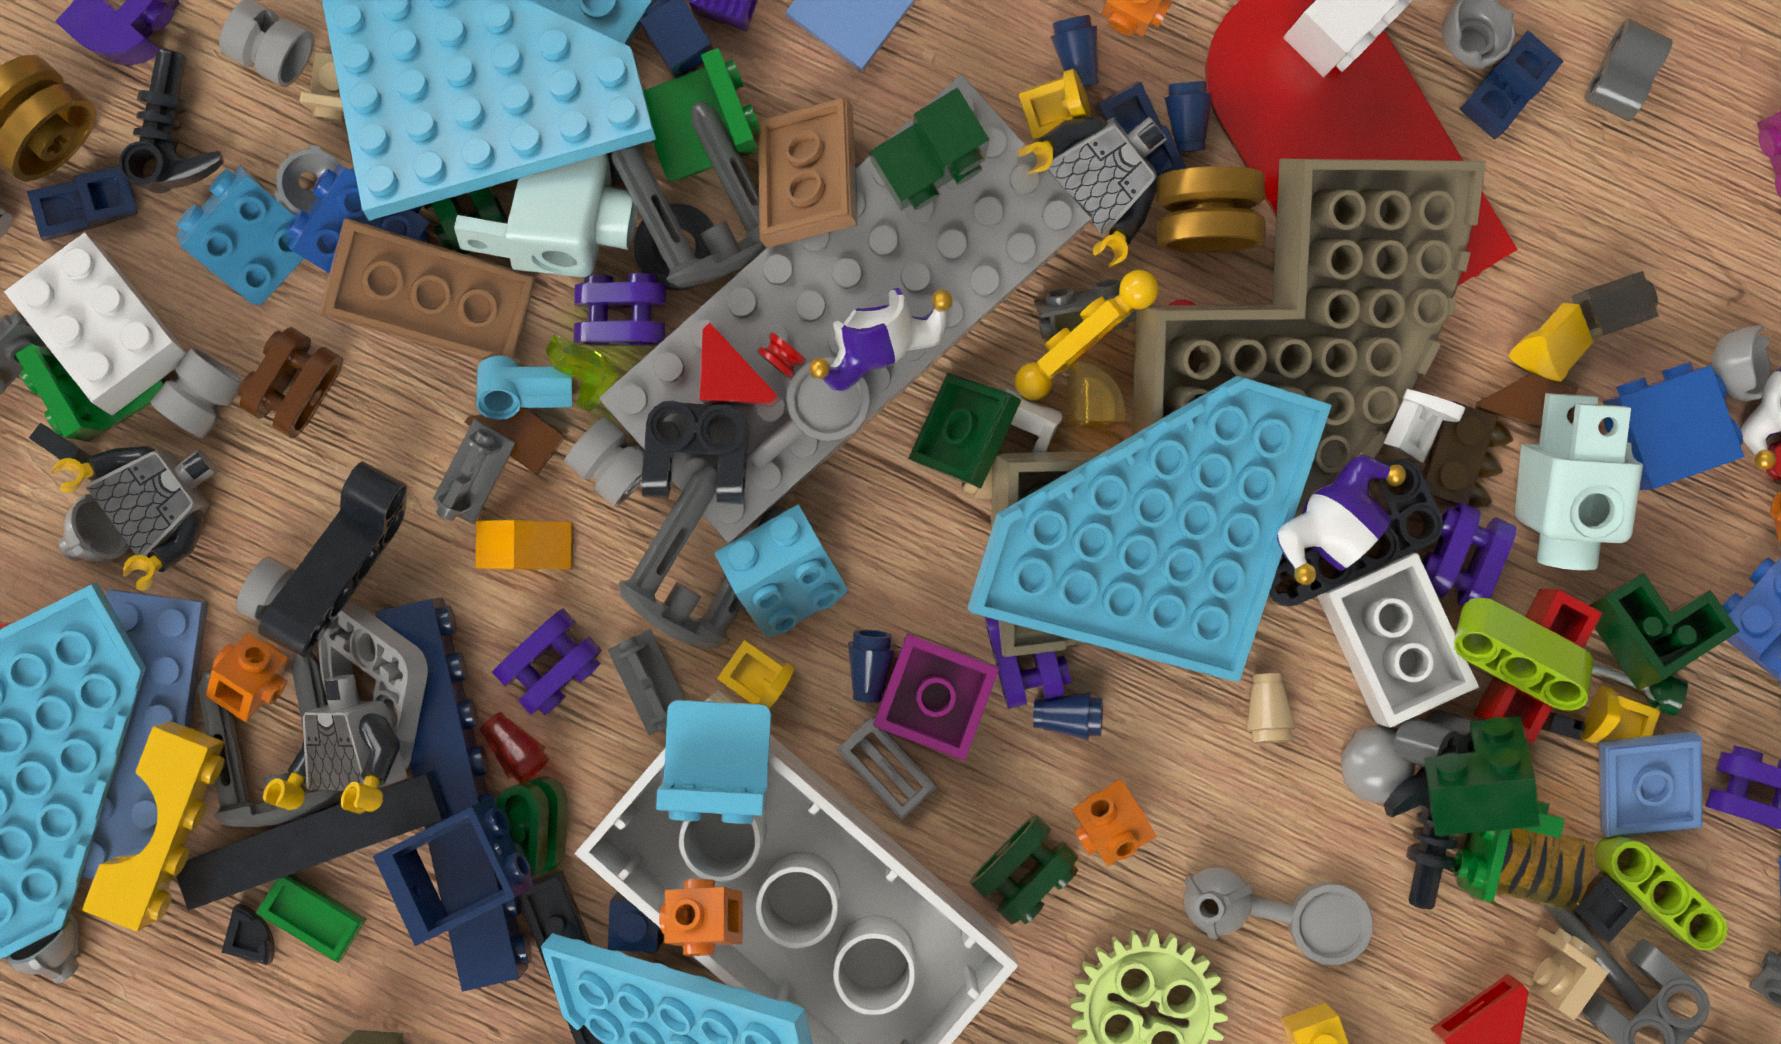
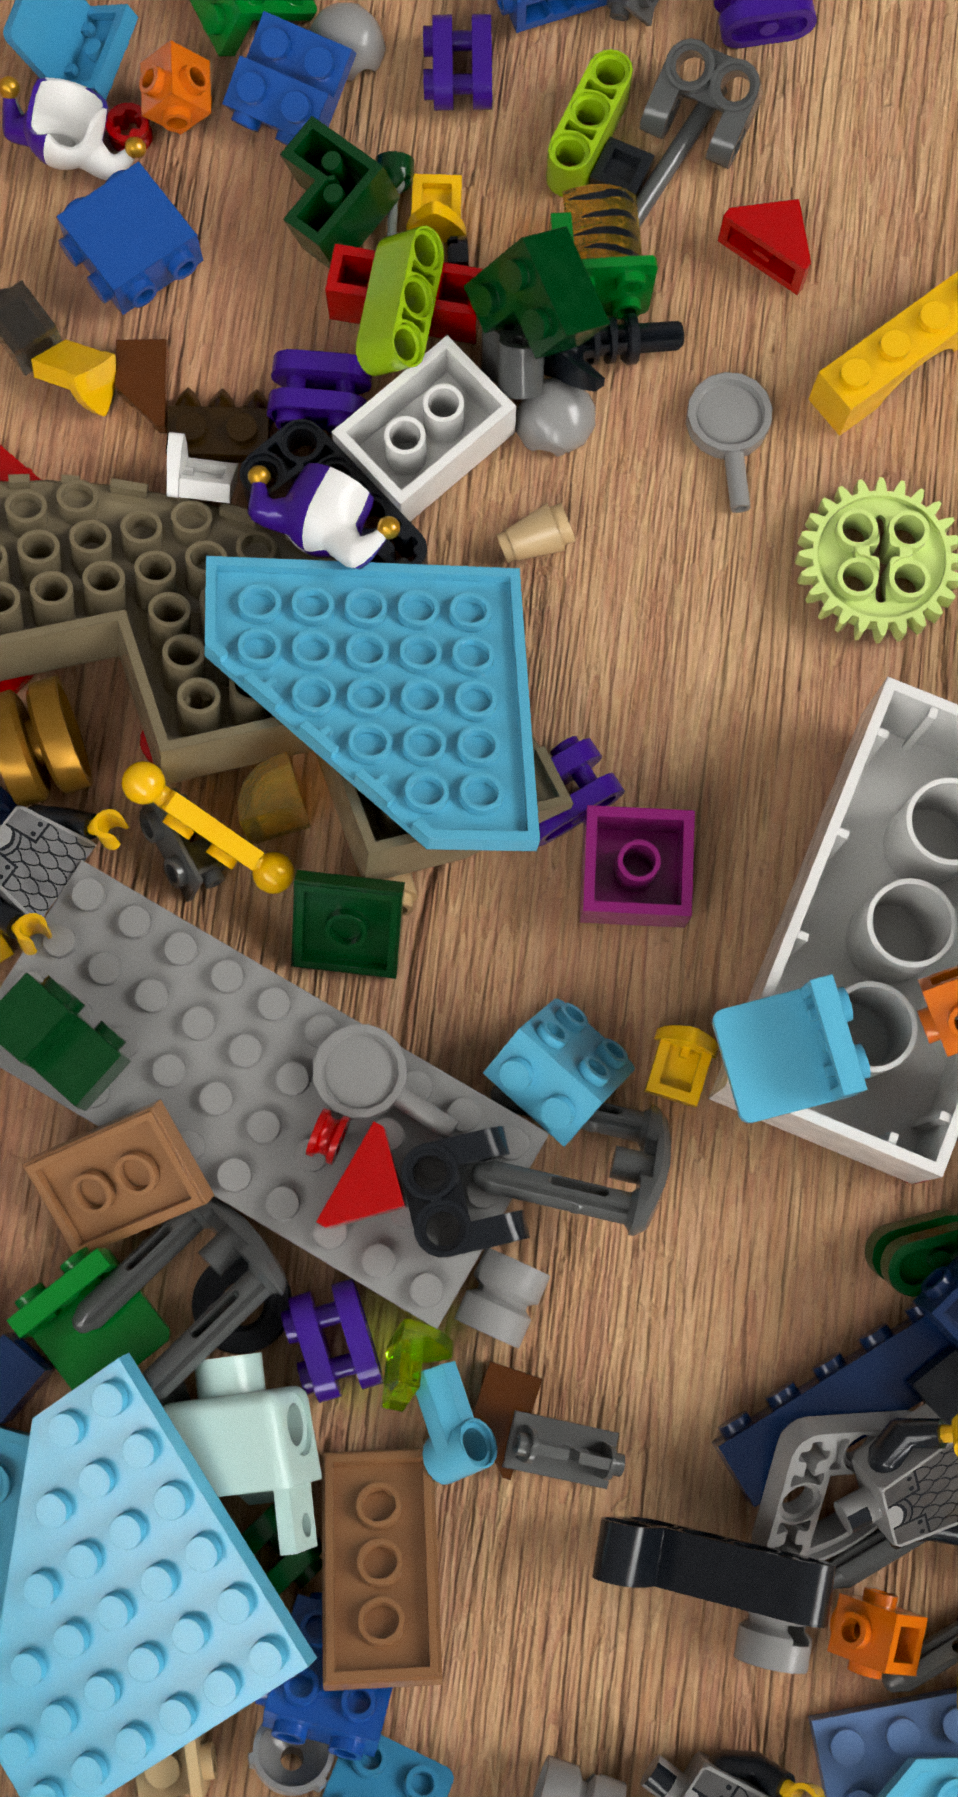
camera: 110 degrees left, 10 degrees down
(264, 389) = (501, 1718): reddish brown brick -> none
(514, 748) = (847, 1303): clear red cone -> none
(523, 544) = (624, 1368): light orange slope -> none
(545, 692) = (776, 1287): dark purple brick -> none
(646, 678) = (726, 1177): dark grey hinge -> none
(869, 663) = (625, 948): dark blue cone -> none
(880, 338) = (275, 1032): piece -> none
(915, 798) = (707, 936): light grey tile -> none
(1037, 420) = (314, 849): white tile -> none
(1053, 868) = (811, 714): dark green brick -> none
(1070, 715) = (609, 726): dark blue cone -> none
(1112, 824) = (706, 649): orange brick -> none
(1230, 894) = (731, 531): light grey piece -> none
(1569, 976) = (699, 177): tan bracket -> none
(1577, 482) = (210, 304): light aqua piece -> none
(1650, 784) = (487, 162): medium blue tile -> none
(1743, 362) = (44, 194): light grey hair -> none

